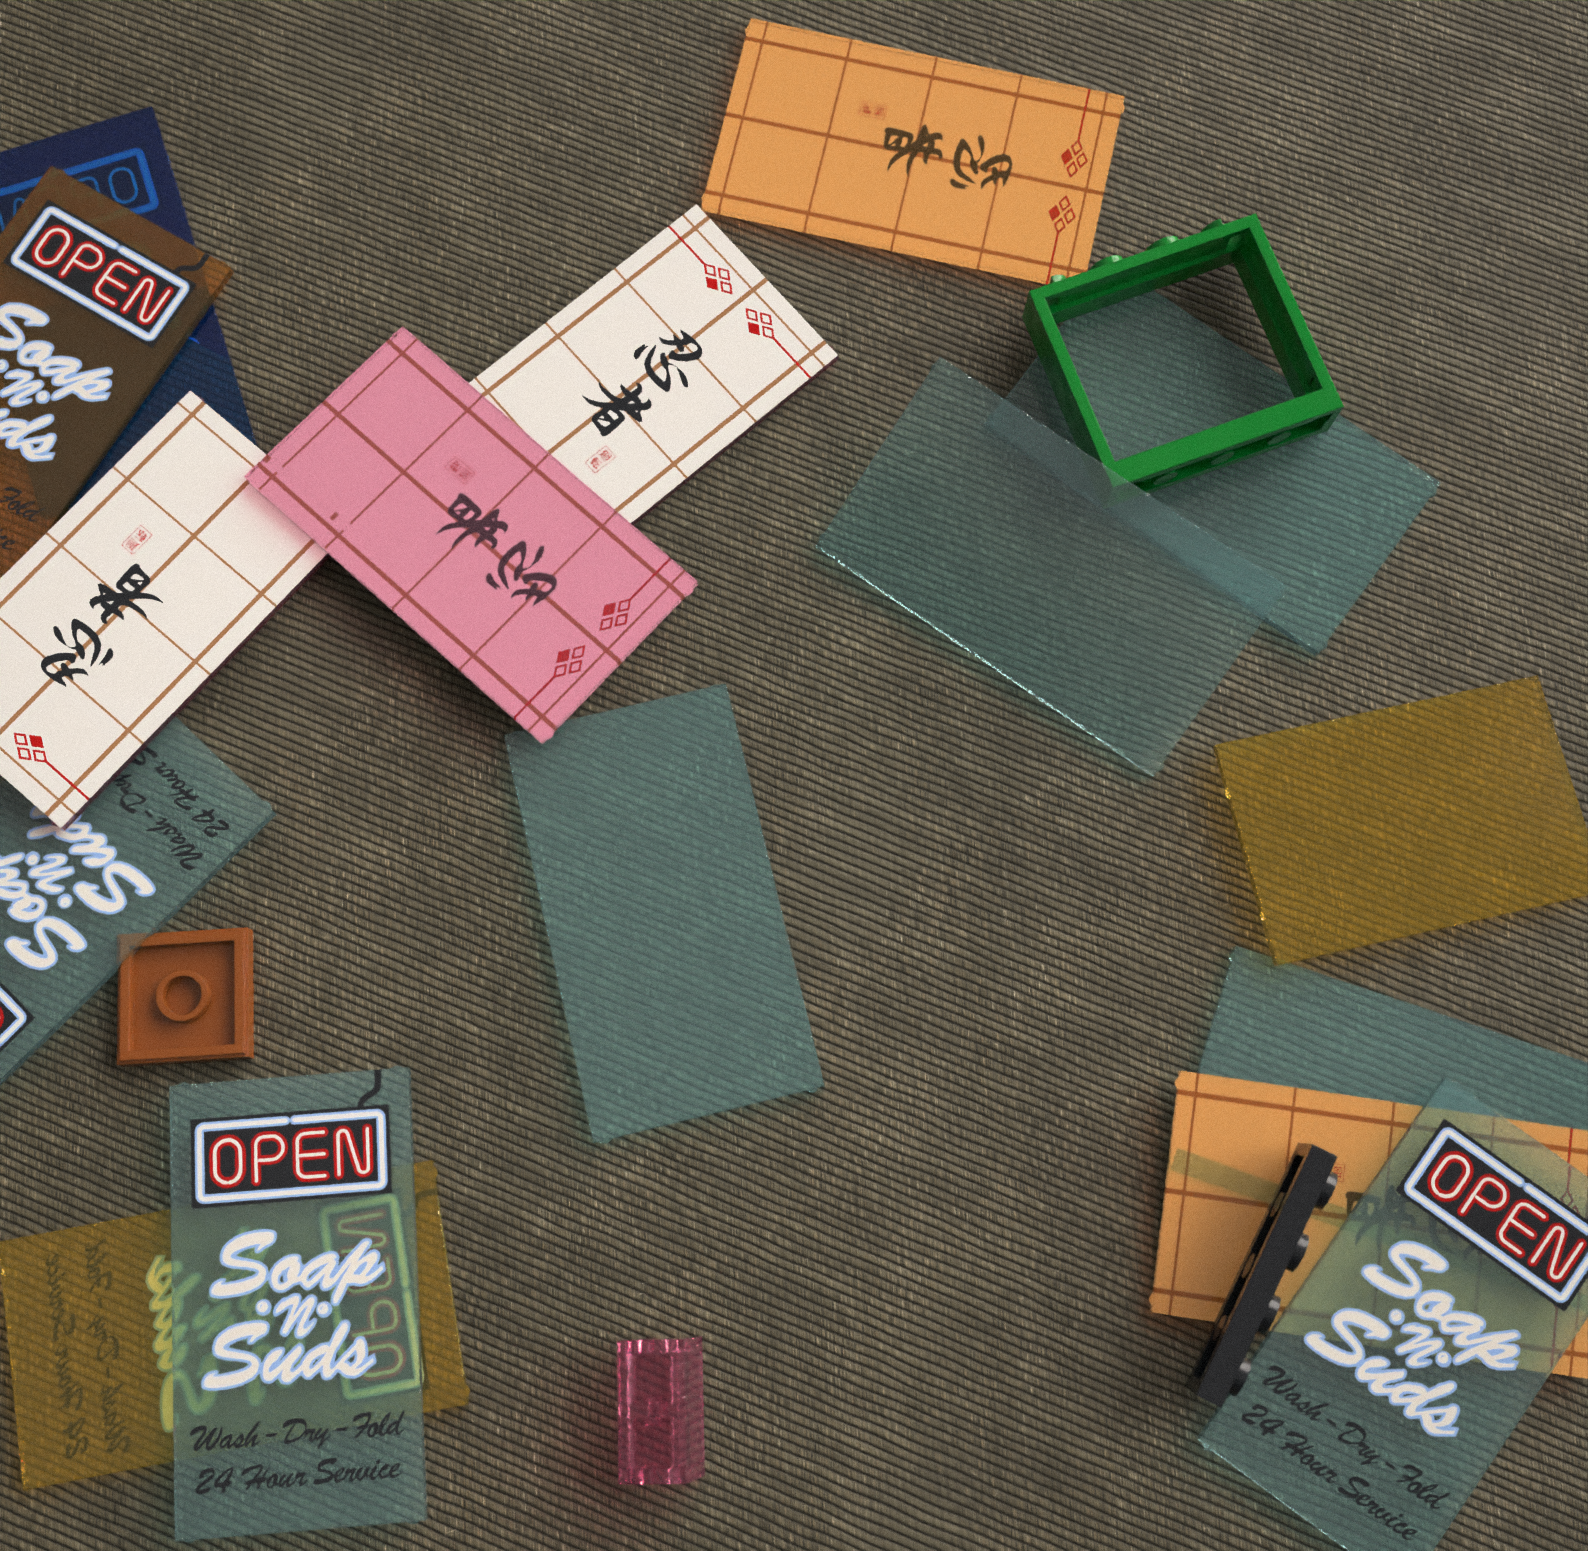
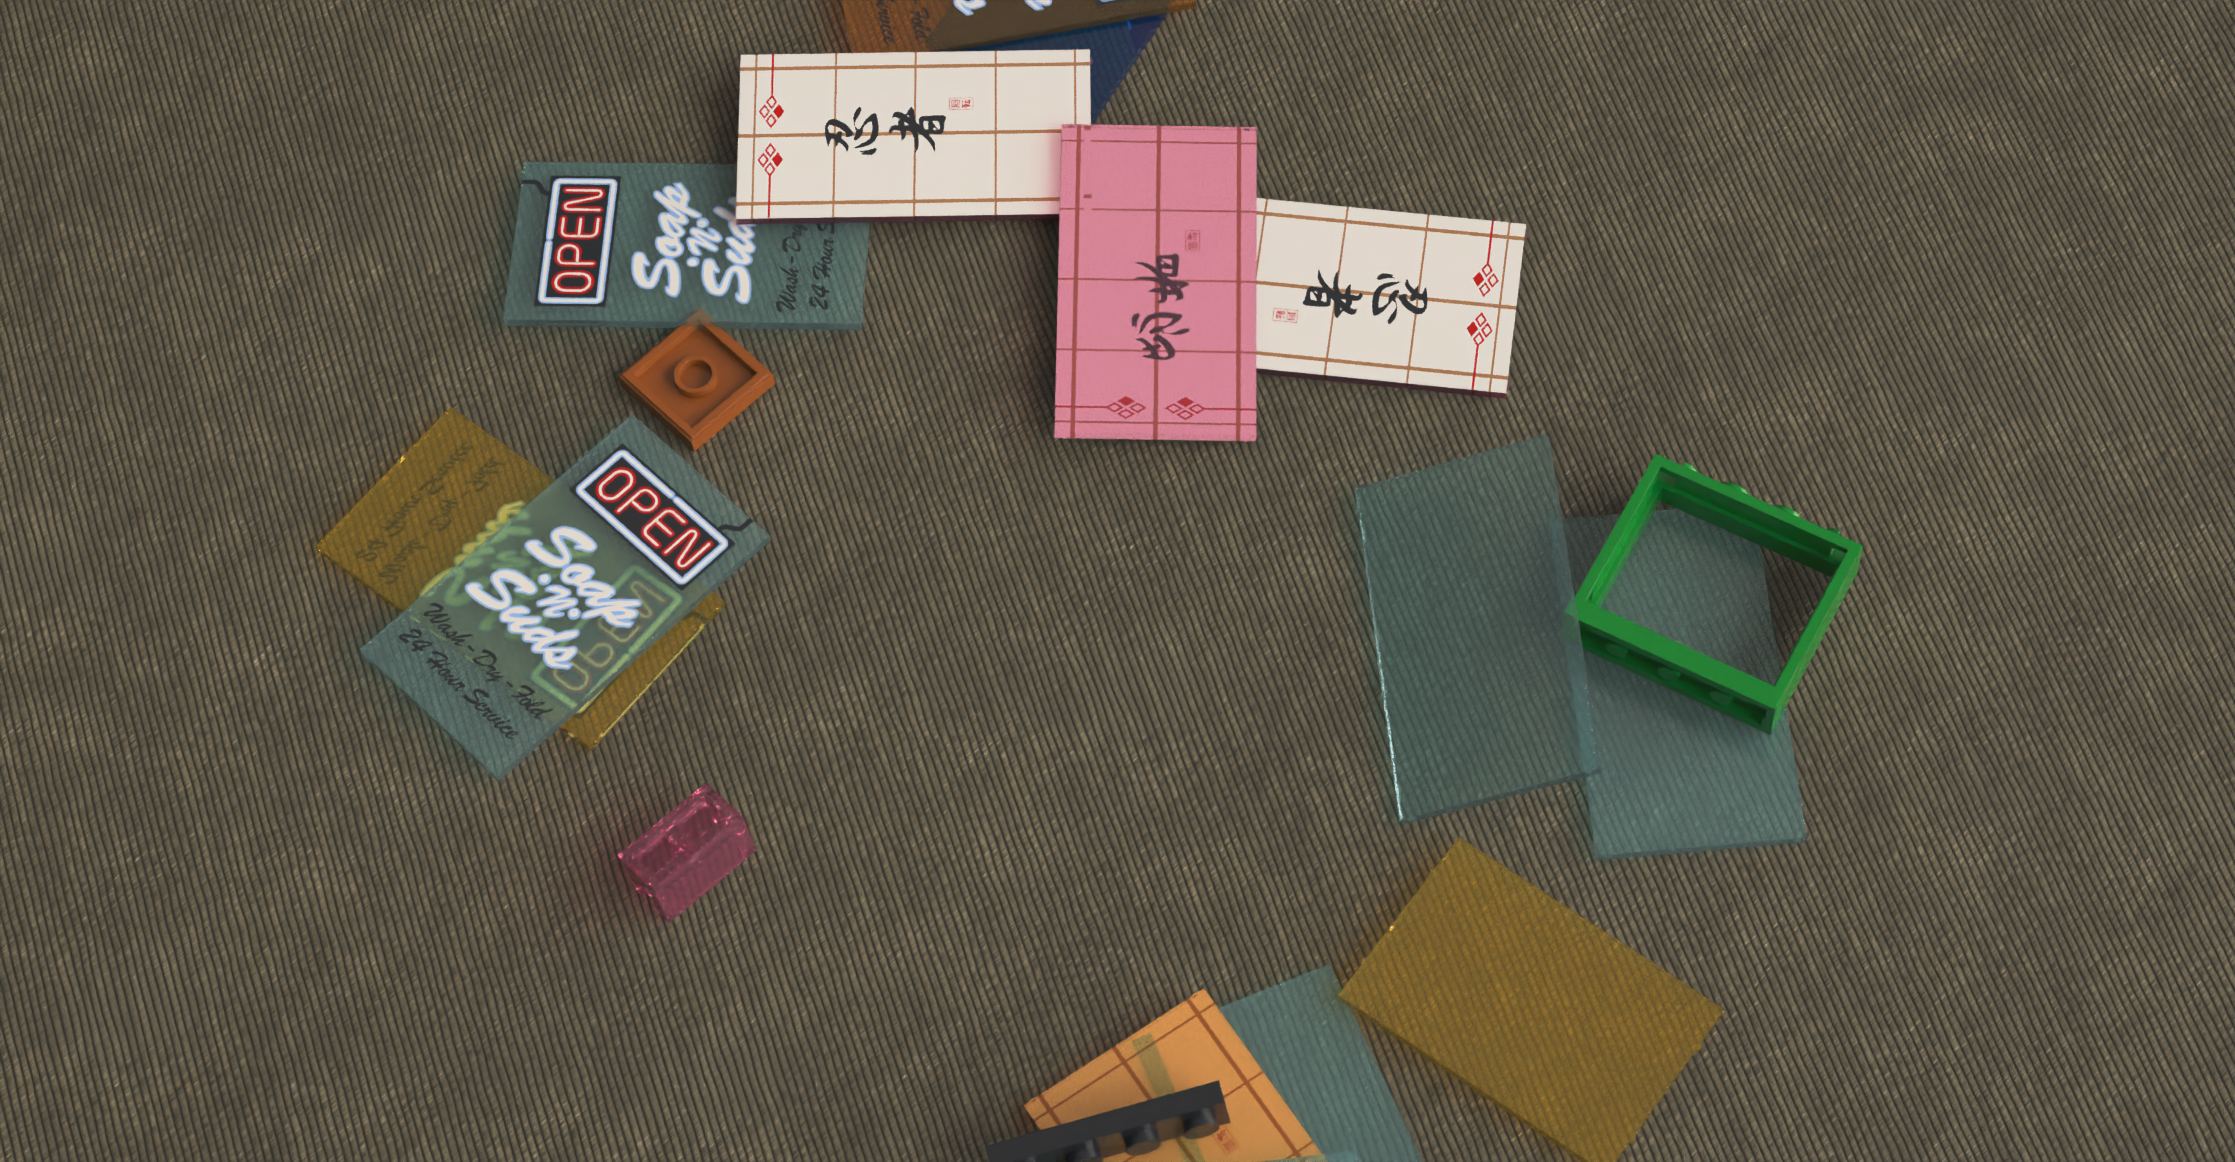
camera: 55 degrees right, 15 degrees down
(662, 914) = (1013, 602): clear light blue piece -> none
(913, 153) = (1708, 323): clear orange piece -> none

